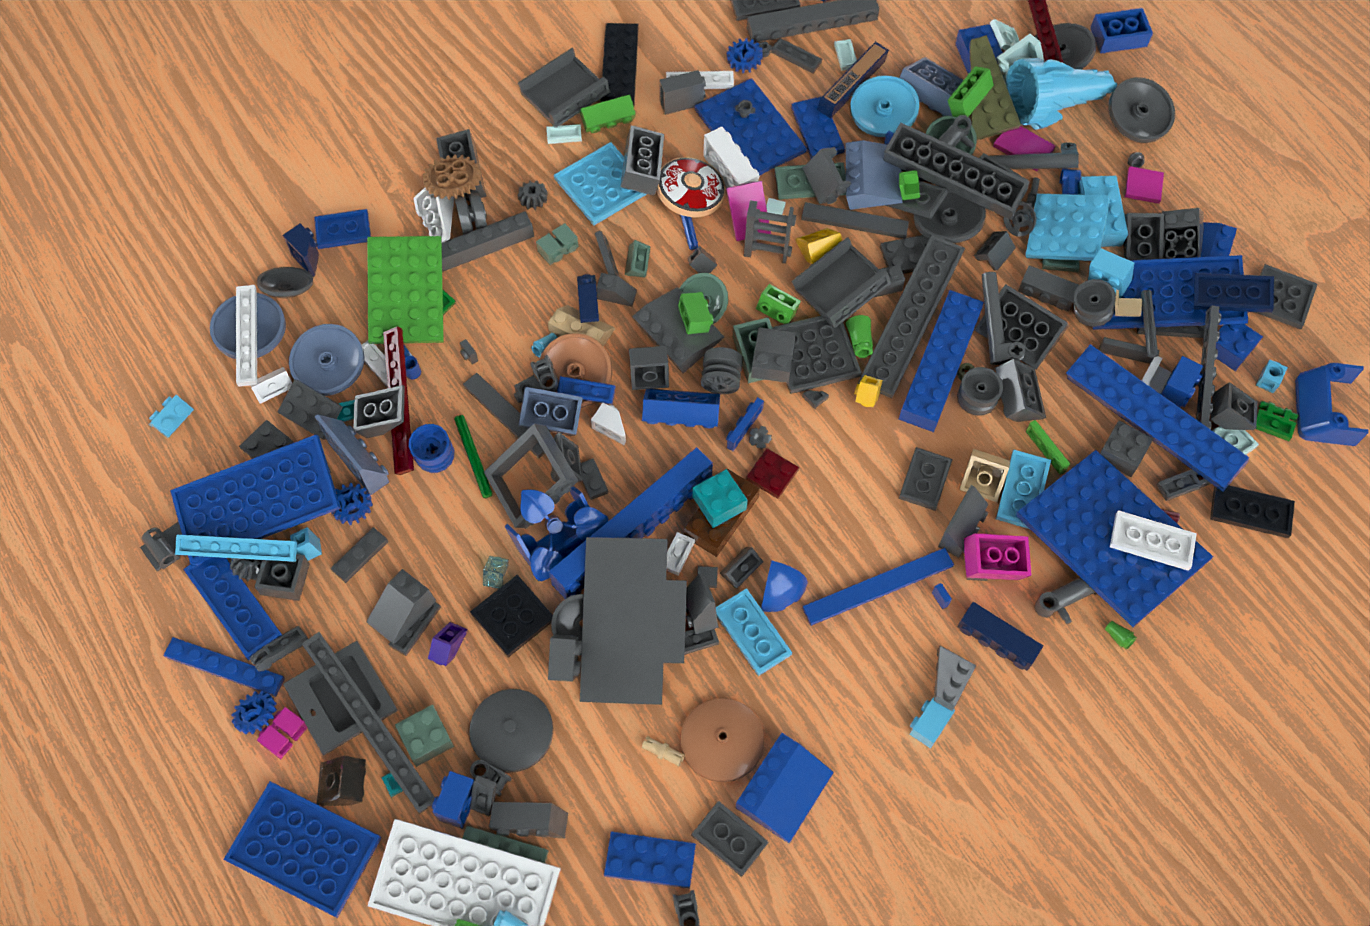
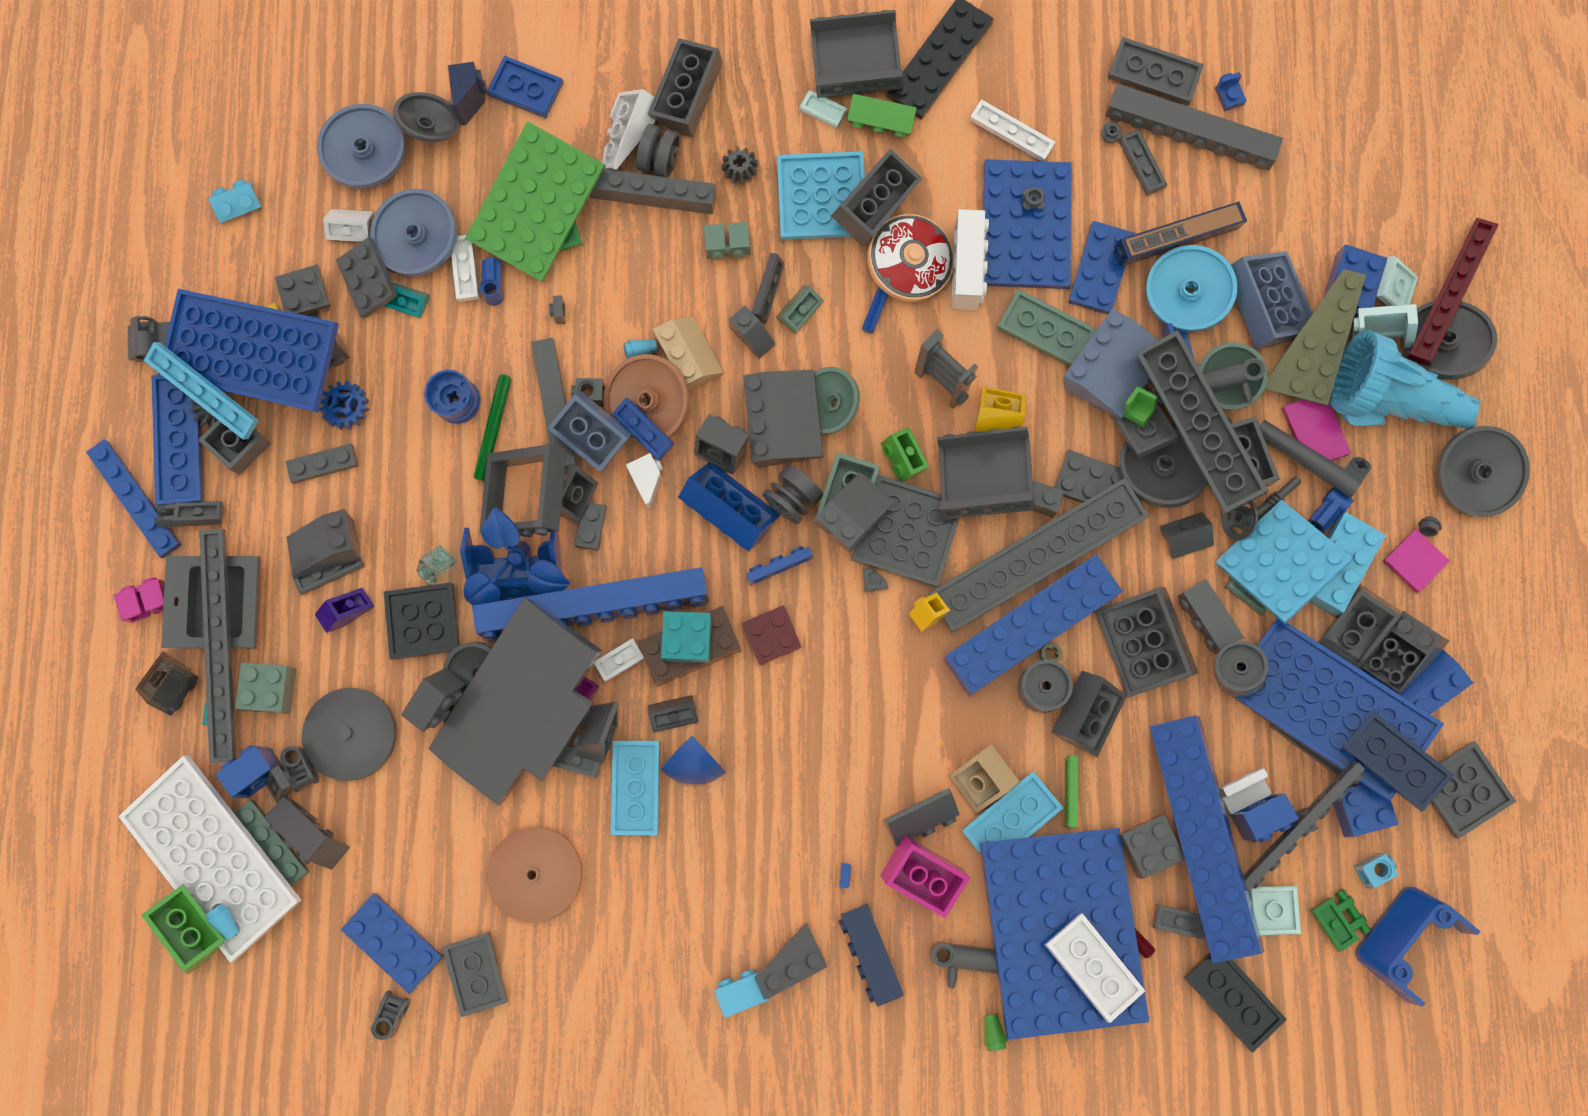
camera: 35 degrees right, 15 degrees up
(246, 335) = (349, 158): white plate -> none
(254, 712) = (129, 564): blue gear -> none
(303, 849) = (96, 724): blue plate -> none
(307, 543) = (275, 423): medium azure brick -> none
(353, 453) = (373, 354): sand blue slope -> none
(378, 411) = (423, 324): dark grey slope -> none
(396, 377) = (455, 318): dark red plate -> none
(451, 177) = (660, 99): medium nougat gear -> none
(544, 371) = (612, 385): dark grey piece -> none
(587, 298) = (711, 327): dark blue slope -> none
(663, 751) = (471, 849): tan pin -> none
(681, 92) = (978, 136): dark grey brick -> none
(695, 313) = (806, 414): bright green brick -> none
(702, 261) = (863, 353): dark grey panel -> none
(710, 575) = (632, 702): dark grey tile -> none
(739, 200) = (954, 319): dark pink tile -> none
(744, 55) = (1080, 121): blue gear -> none
(760, 437) = (785, 589): dark grey plant -> none
(775, 206) = (985, 337): light aqua tile -> none
(784, 788) = (557, 961): blue slope -> none
(825, 177) = (1055, 338): dark grey panel -> none
(845, 53) = (1199, 194): light aqua tile -> none
(855, 220) = (1061, 404): dark grey tile -> none
(860, 334) = (965, 545): bright green plant -> none
(877, 586) = (791, 822): blue tile -> none
(925, 479) = (922, 741): dark grey tile -> none
(970, 92) = (1291, 336): bright green brick -> none
(998, 350) = (1100, 653): dark grey axle -> none
(1112, 269) = (1282, 648): medium azure brick -> none
(1121, 30) = (1539, 356): blue brick -> none
(1125, 350) = (1242, 742): dark grey tile -> none
(1128, 306) = (1274, 696): tan bracket -> none
(1149, 324) = (1282, 730): dark grey axle -> none
(1234, 409) = (1301, 881): dark grey slope -> none

